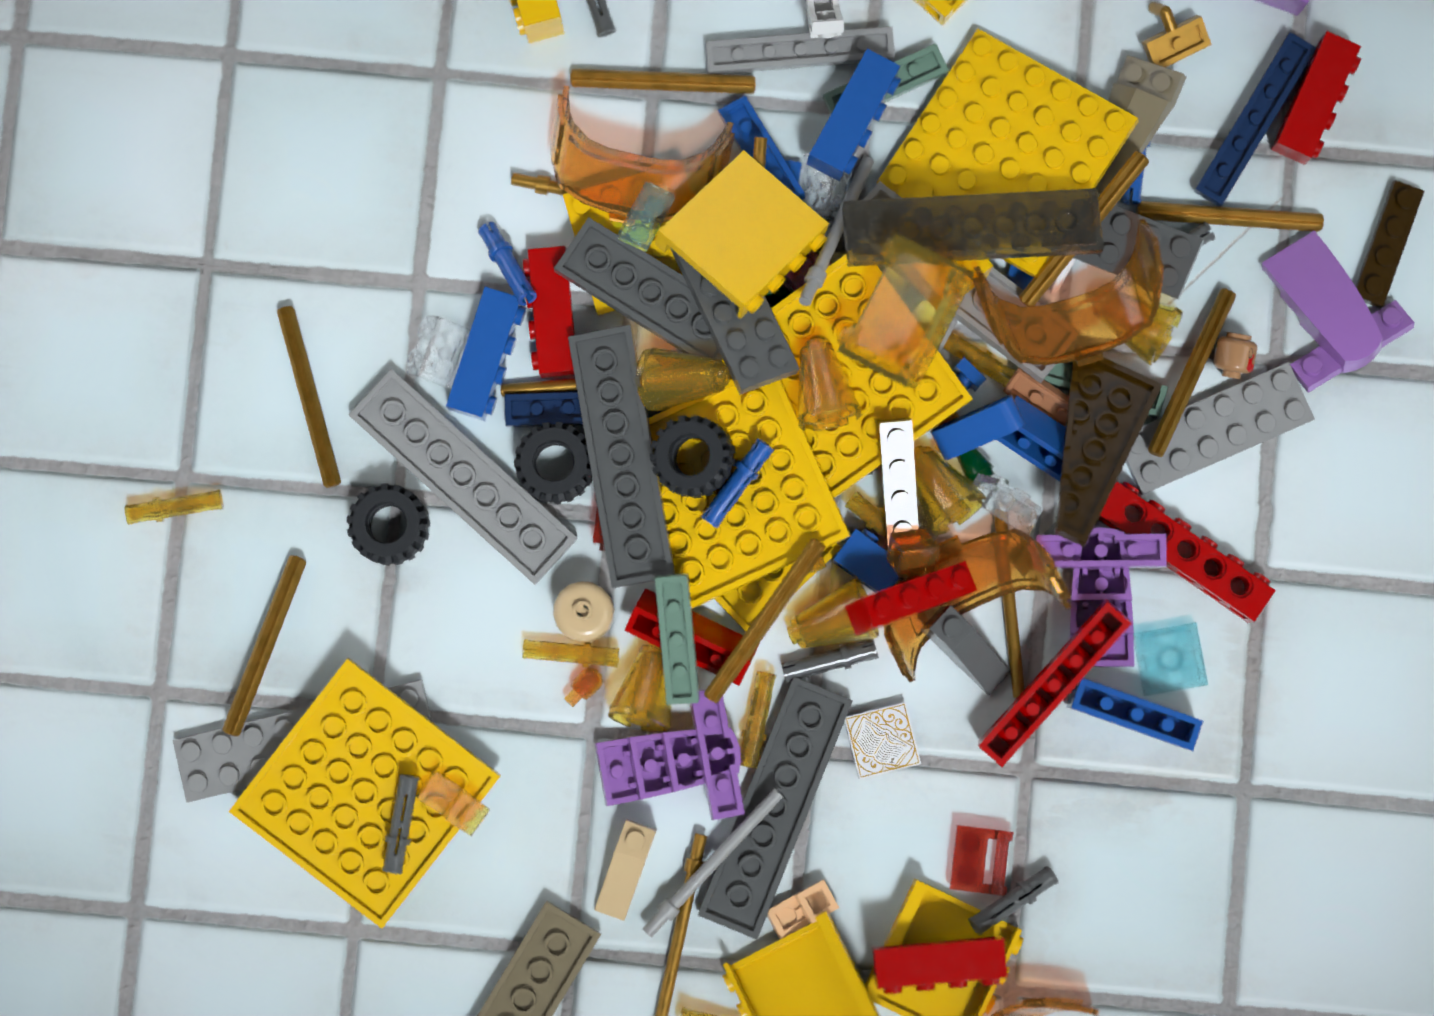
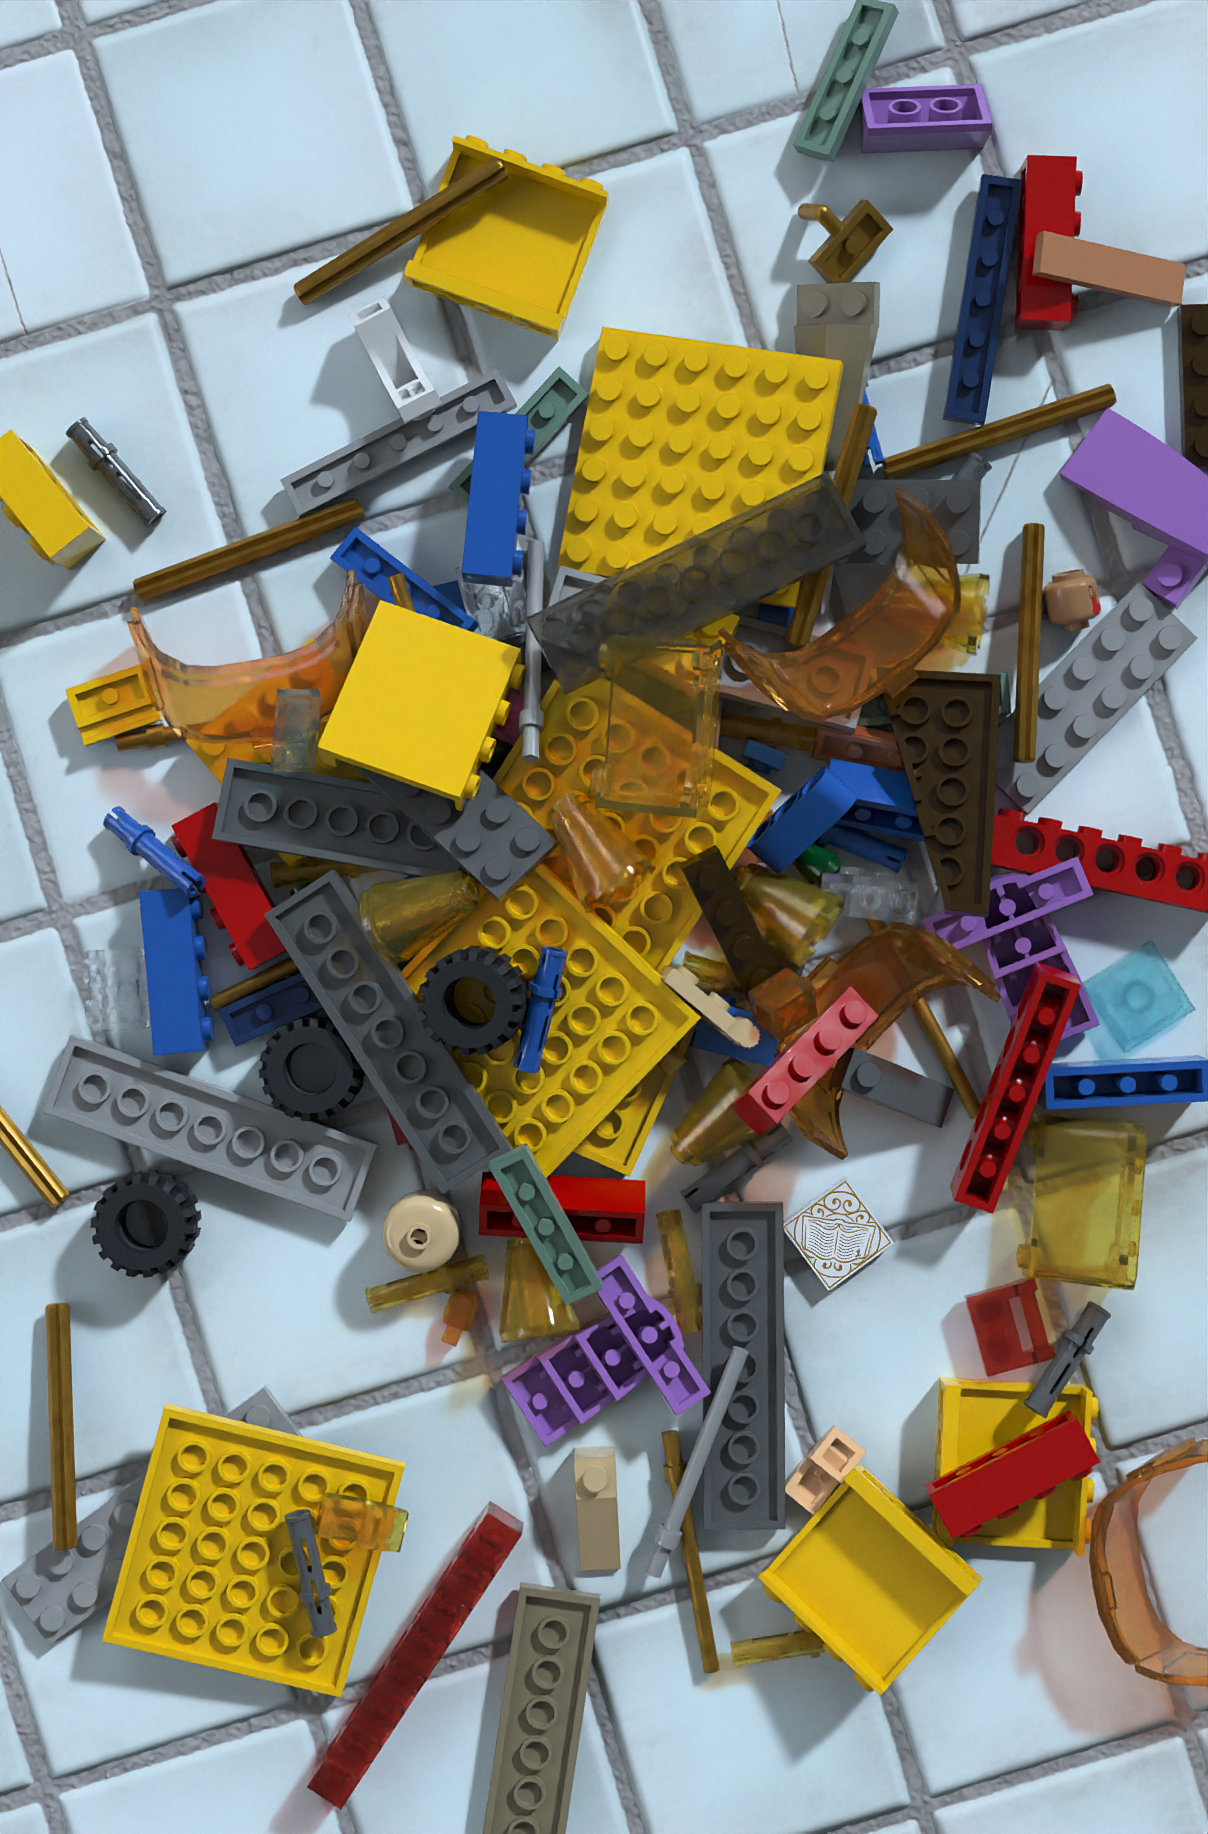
camera: 20 degrees left, 5 degrees up
(448, 919) = (415, 1655): none -> clear red brick
(520, 150) = (112, 706): none -> yellow plate
(606, 320) = (310, 870): none -> clear yellow pin
(764, 620) = (640, 1159): pearl gold axle -> none
(860, 534) = (712, 1007): none -> tan hinge
(1013, 466) = (864, 846): none -> blue pin
(1071, 788) = (1085, 1200): none -> clear yellow windscreen
(1353, 133) = (1108, 269): none -> nougat tile

